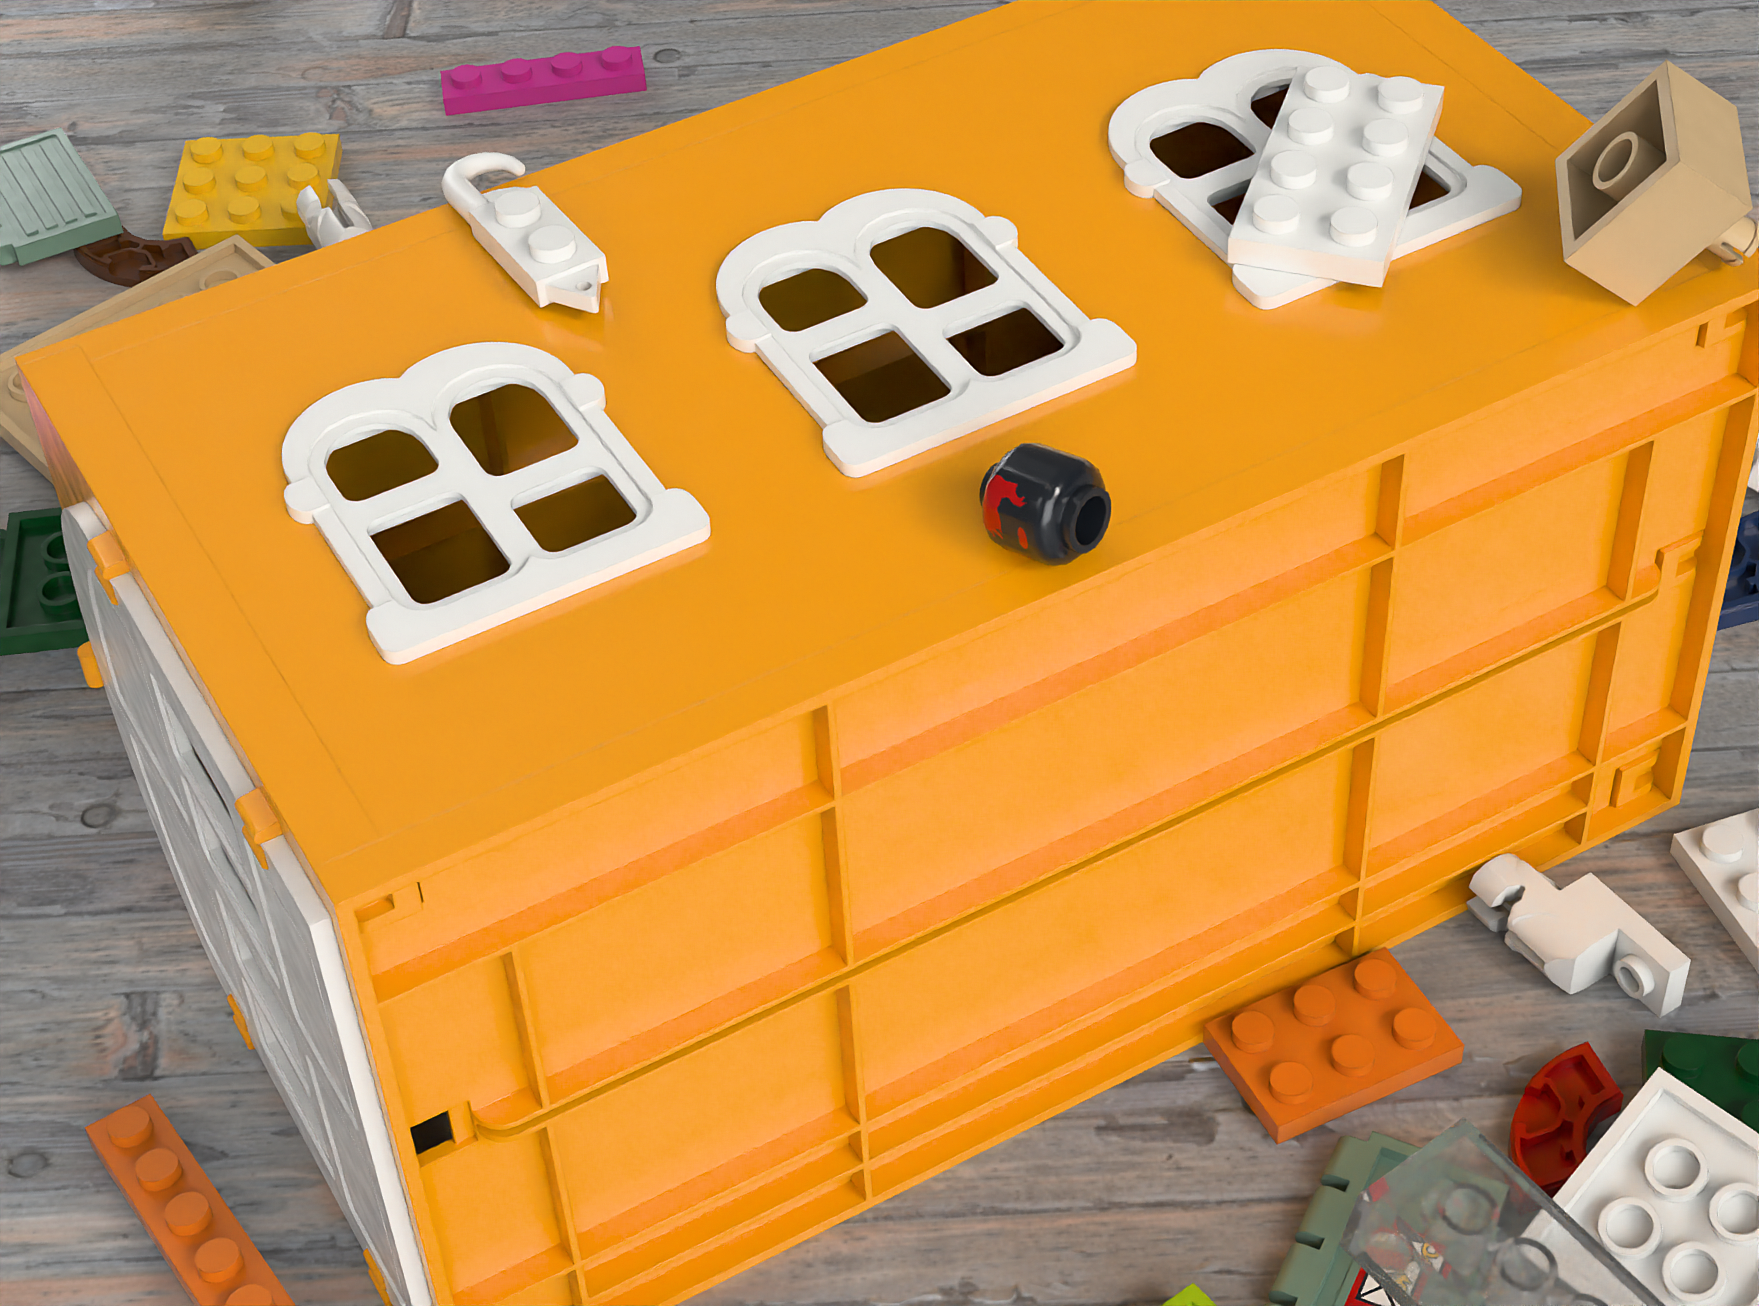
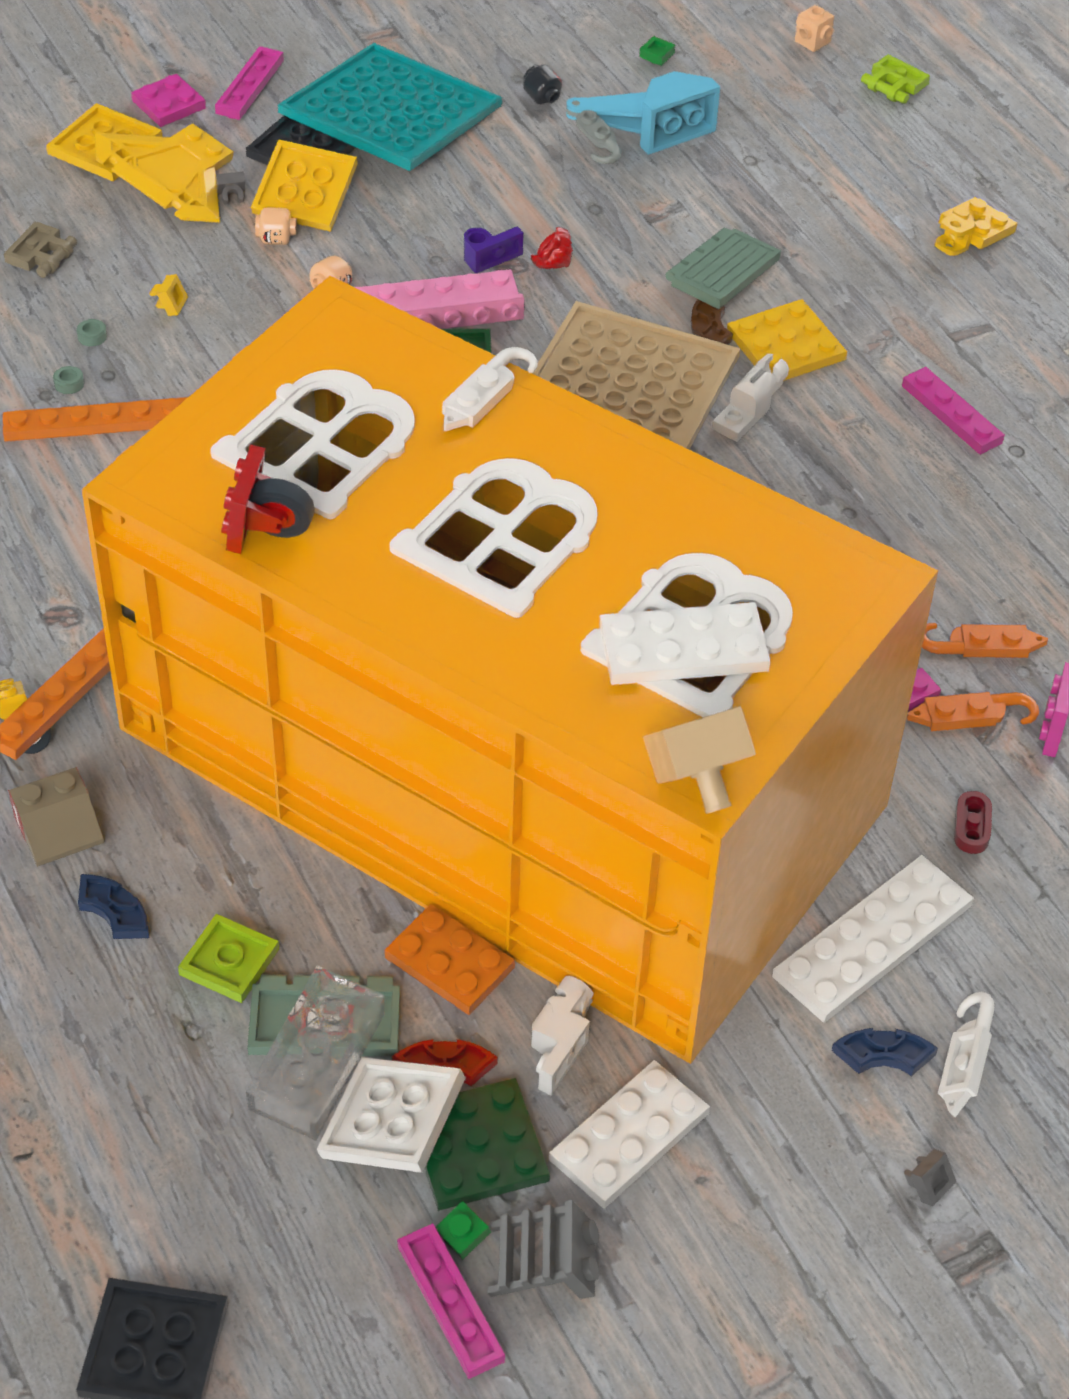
camera: 60 degrees right, 5 degrees up
(659, 581) = (263, 503): none -> plate
(1045, 504) = (381, 608): black head -> none

